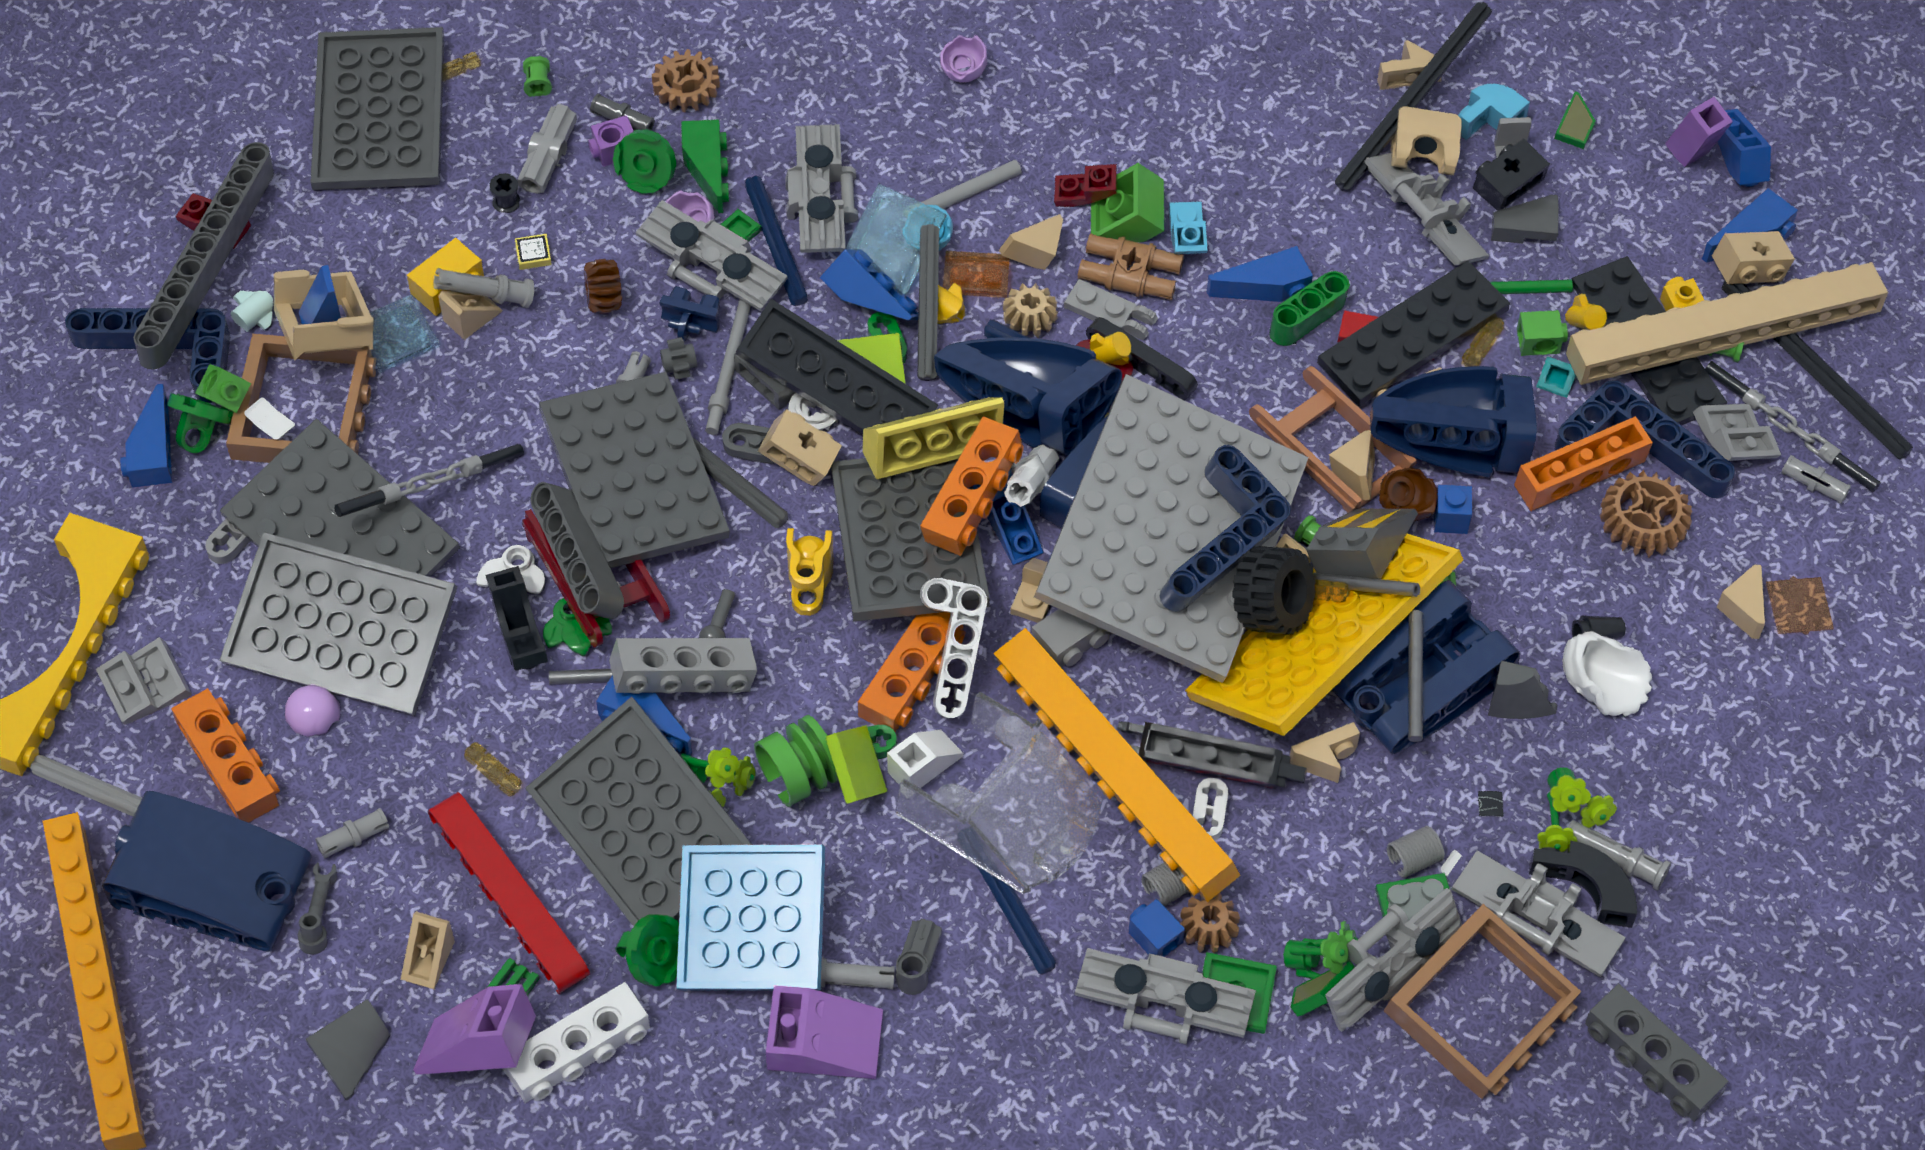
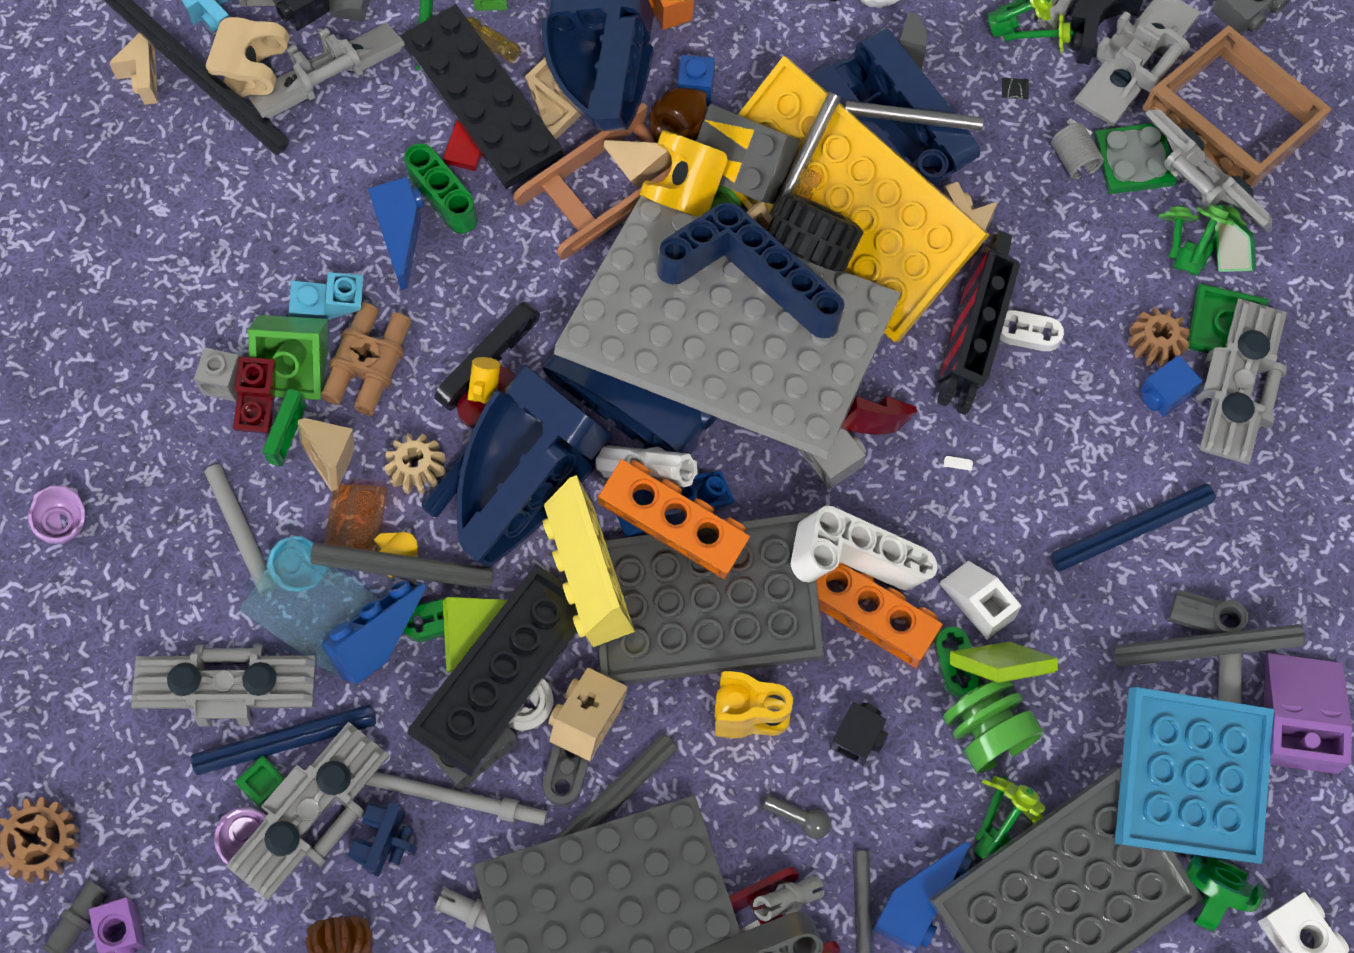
camera: 85 degrees left, 10 degrees up
(640, 604) = (788, 898): none -> light grey pin
(644, 161) = (158, 887): green tile -> none
(678, 358) = (447, 853): dark grey gear -> none
(682, 665) = (889, 904): light grey brick -> none
(702, 157) = (153, 820): green slope -> none
(791, 662) = (860, 733): none -> black brick
(884, 949) = (1209, 645): none -> dark grey axle
(1024, 603) = (762, 475): tan slope -> none
(1025, 817) = (1056, 487): clear windscreen -> none
(1042, 207) = (284, 428): none -> green tile
(1095, 302) = (416, 387): light grey hinge -> none
(1100, 677) = (879, 418): none -> dark red slope
(1103, 150) = (217, 374): none -> light grey brick
(1117, 765) = (1000, 404): light orange brick -> none
(1165, 882) = (1114, 368): light grey piece -> none
(1328, 498) = (692, 177): none -> yellow piece

